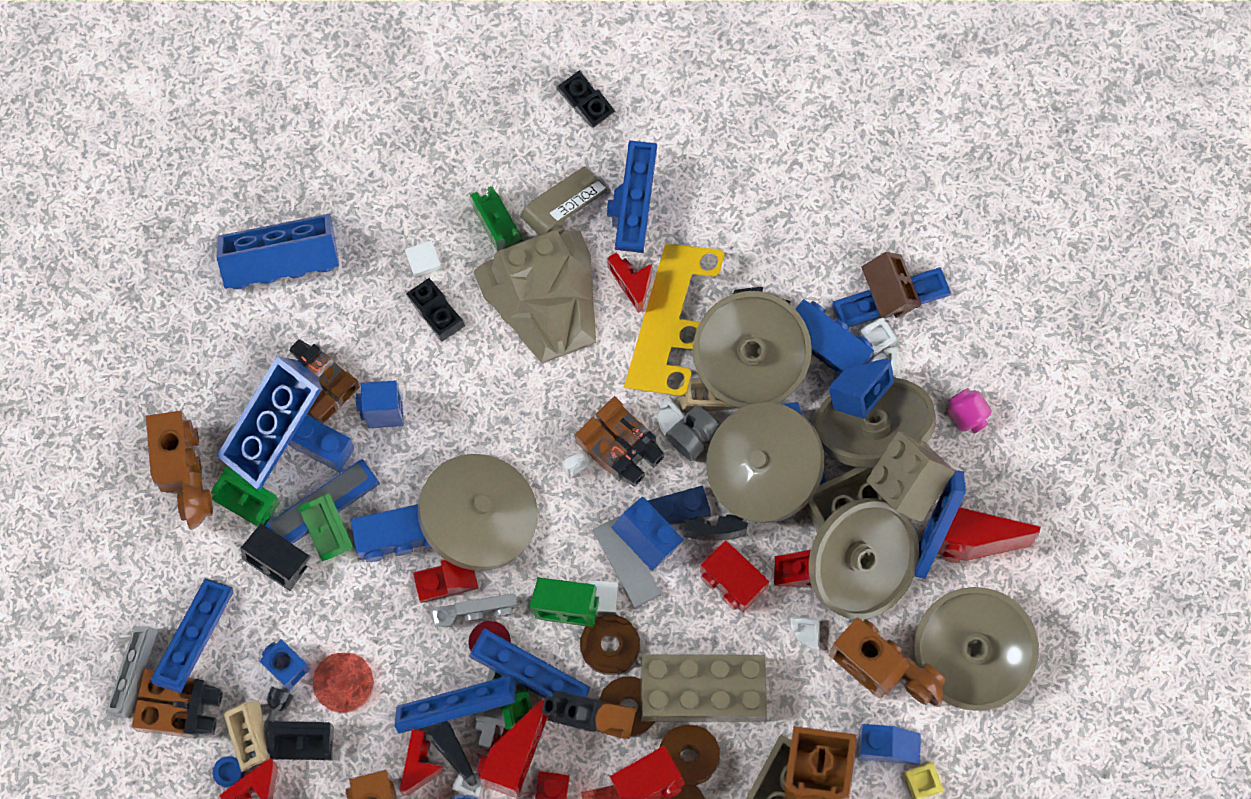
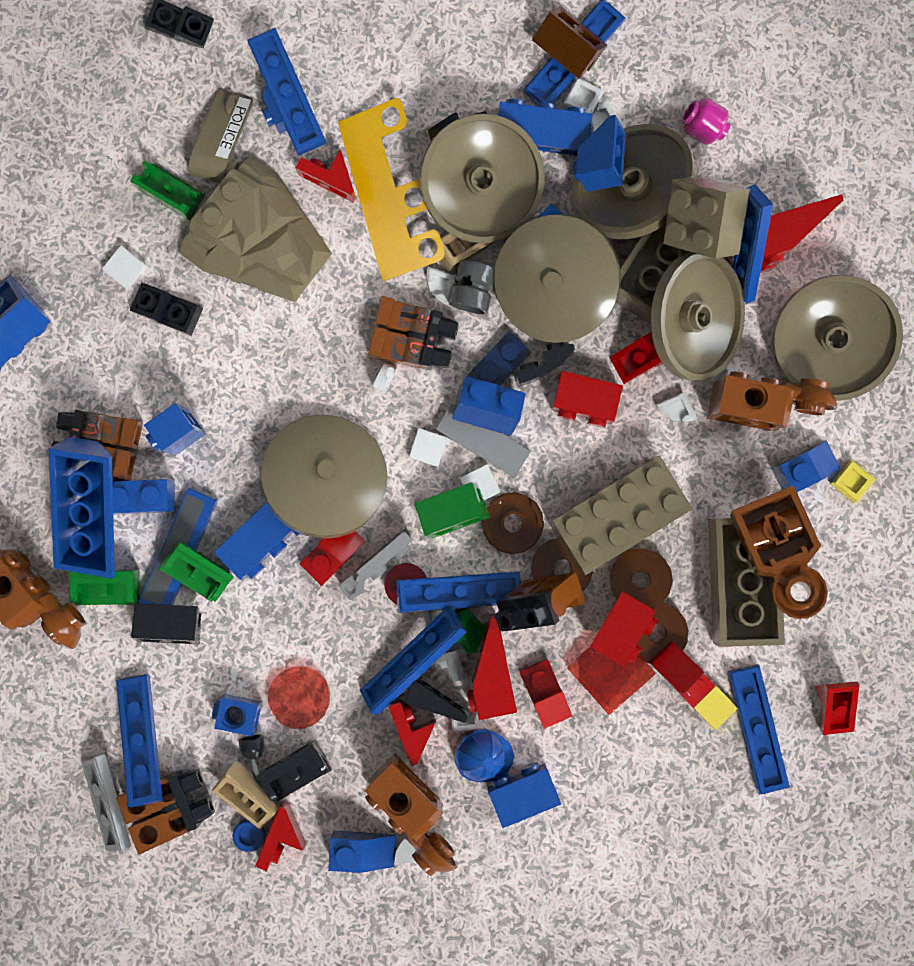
camera: 35 degrees left, 15 degrees up
(578, 541) = (428, 447): none -> white tile

